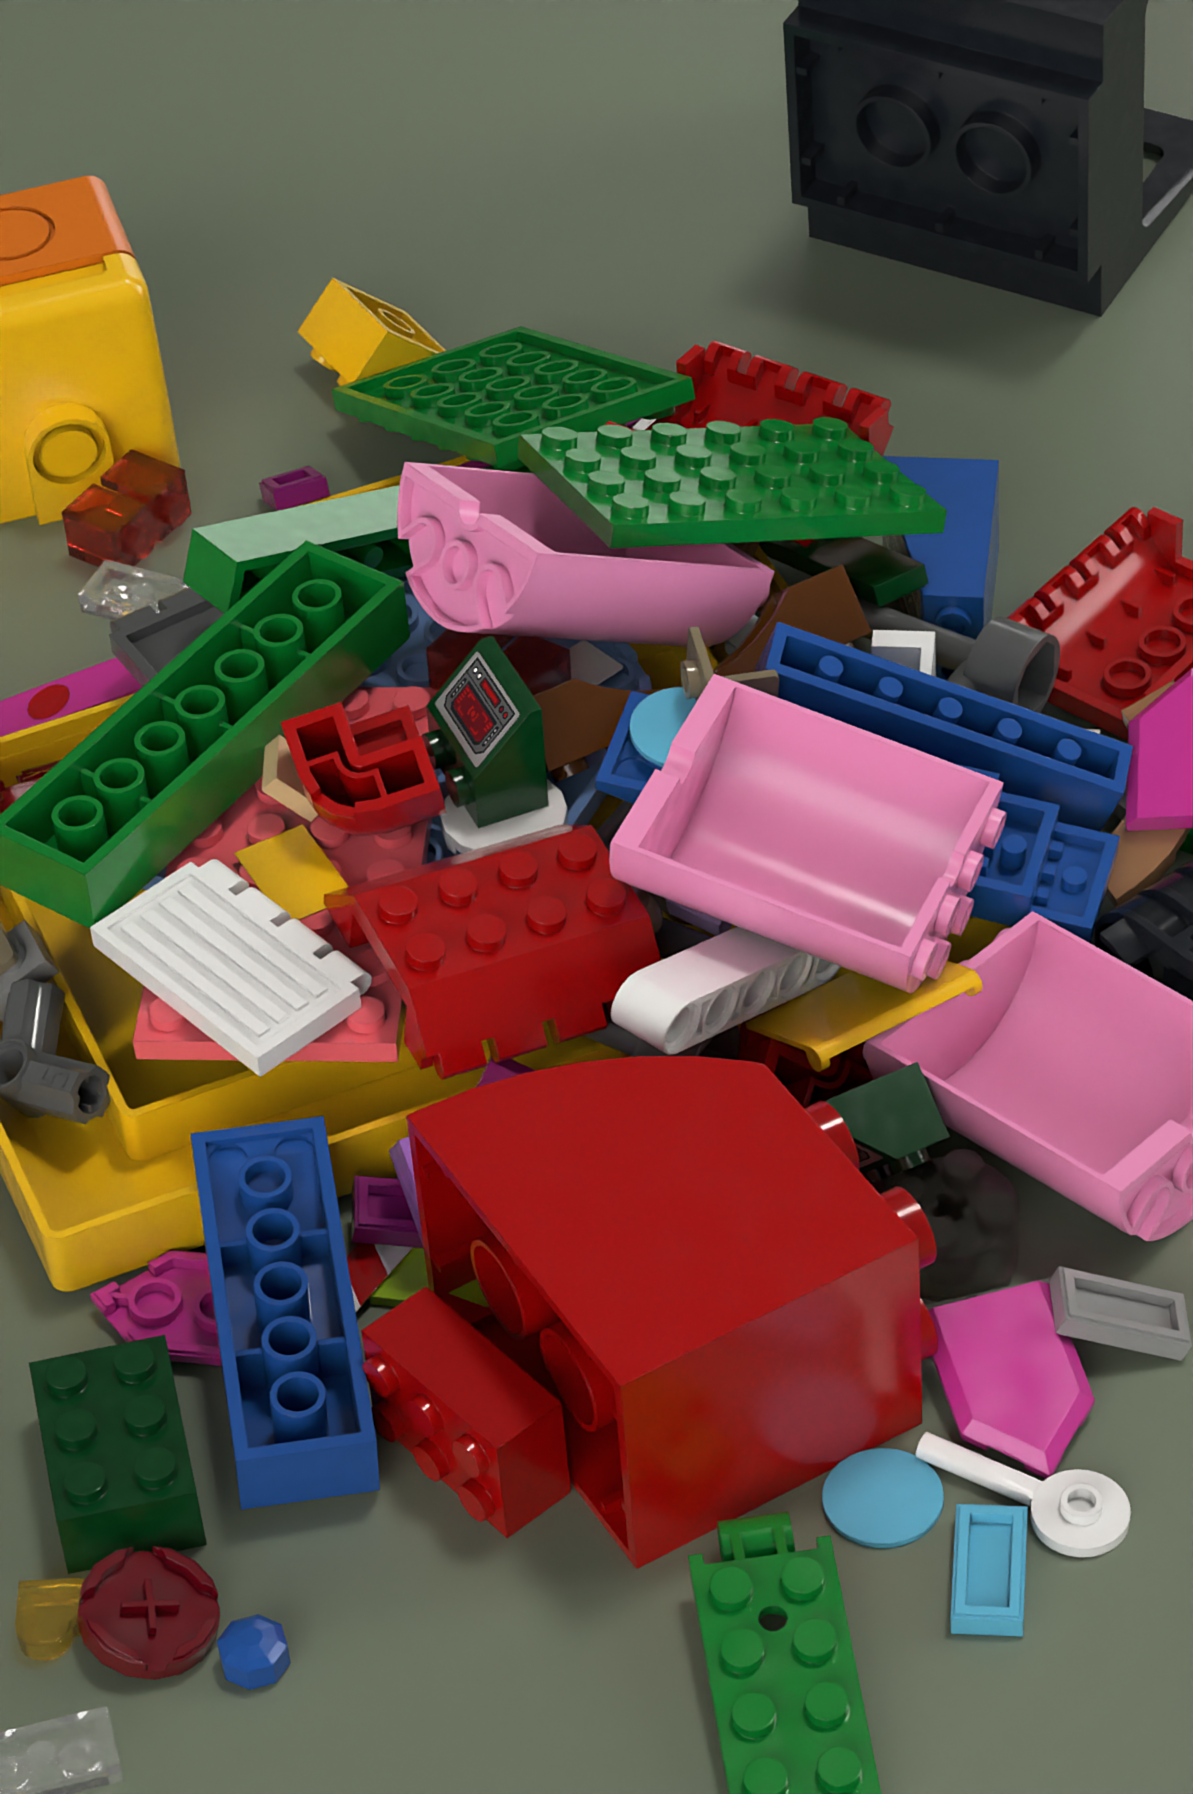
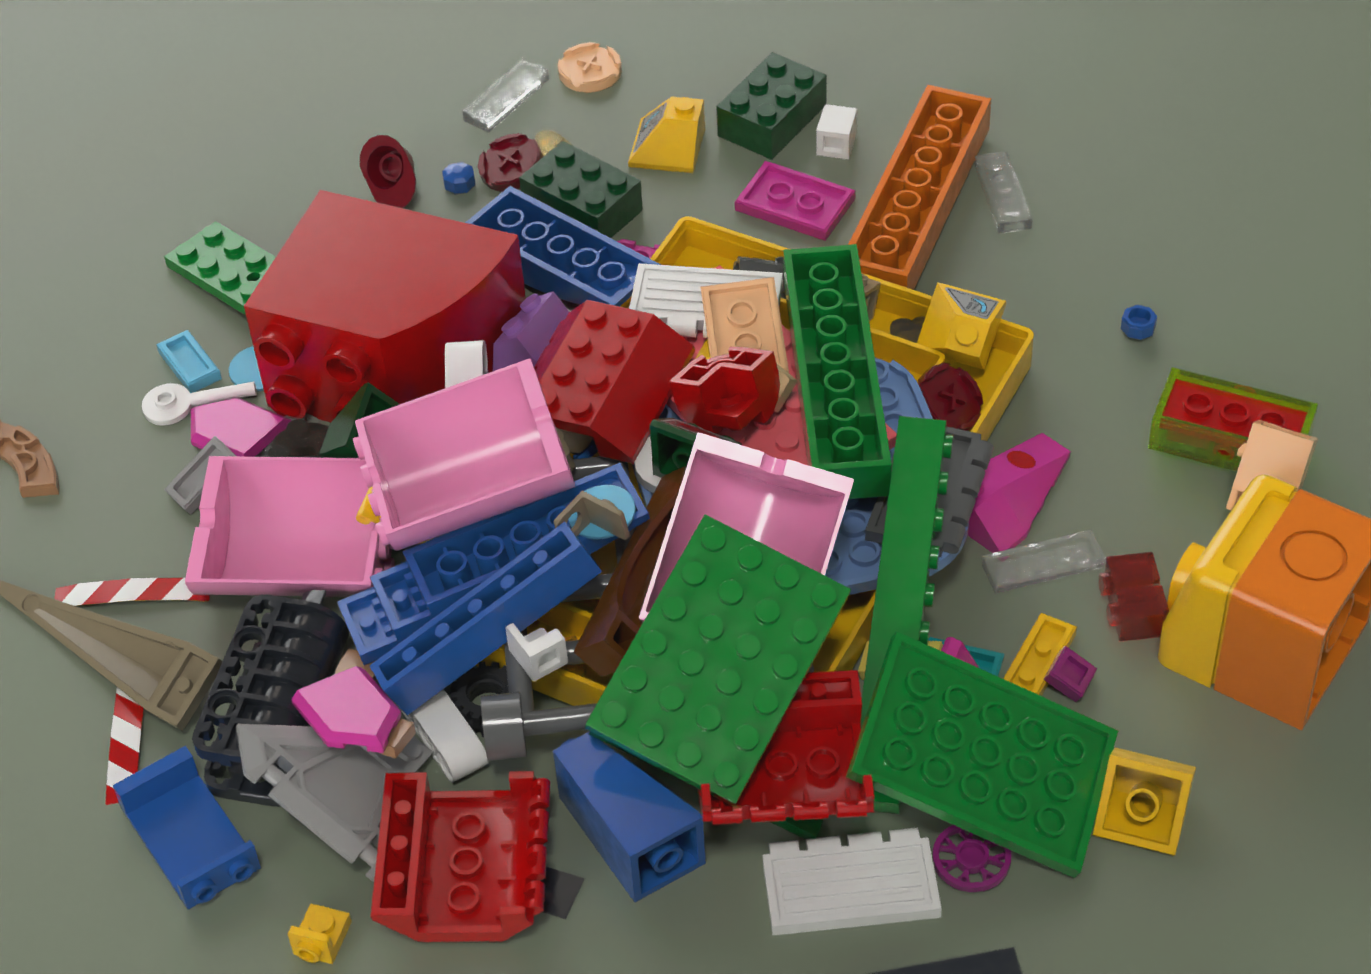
camera: 140 degrees right, 5 degrees up
(242, 865) = (744, 317): none -> light nougat tile
(363, 1700) = (388, 171): none -> dark red piece

